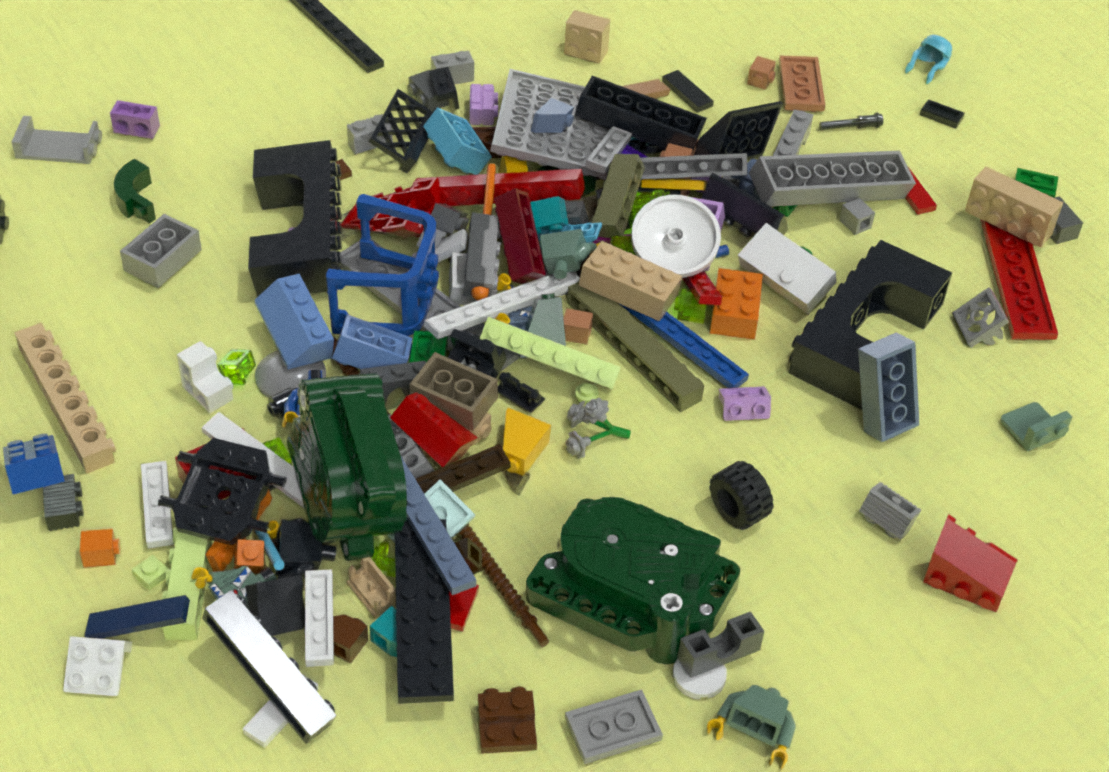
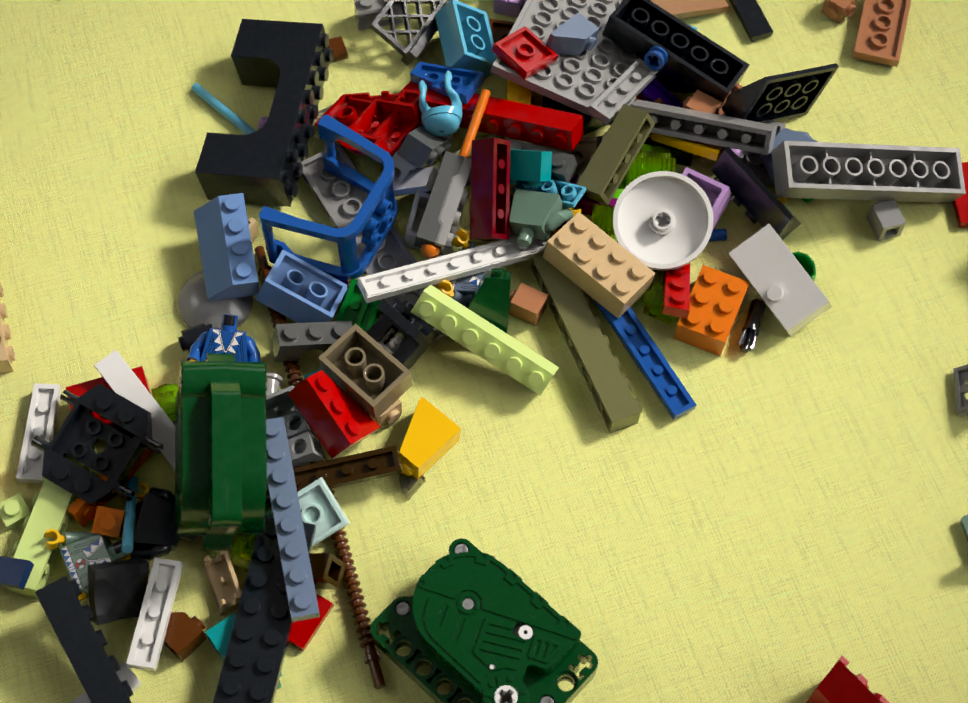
camera: 15 degrees right, 15 degrees up
(127, 184) = (107, 31): dark green arch -> none
(160, 250) = (119, 123): light grey brick -> none
(202, 378) = (121, 290): white brick -> none
(237, 365) = (160, 282): clear neon green brick -> none
(241, 225) = (222, 109): none -> medium azure bar
(451, 169) = (463, 81): none -> blue wing
(460, 192) = (445, 119): none -> medium azure hair
(516, 132) = (524, 52): none -> red tile
(519, 393) = (443, 375): black hinge -> none
(586, 392) = (514, 391): yellowish green plate -> none
(594, 413) = (507, 428): light grey plant -> none
(634, 122) = (662, 57): none -> blue bush
(741, 495) = (635, 562): black tyre -> none
(745, 403) = (681, 438): lavender bracket -> none
(773, 310) = (751, 327): none -> black piece
(795, 133) = (844, 103): light grey arch -> none
(861, 122) = (946, 90): pin -> none
(882, 283) = (883, 319): black arch -> none
(889, 386) = (837, 467): brick -> none
(889, 511) = (793, 614): light grey brick -> none

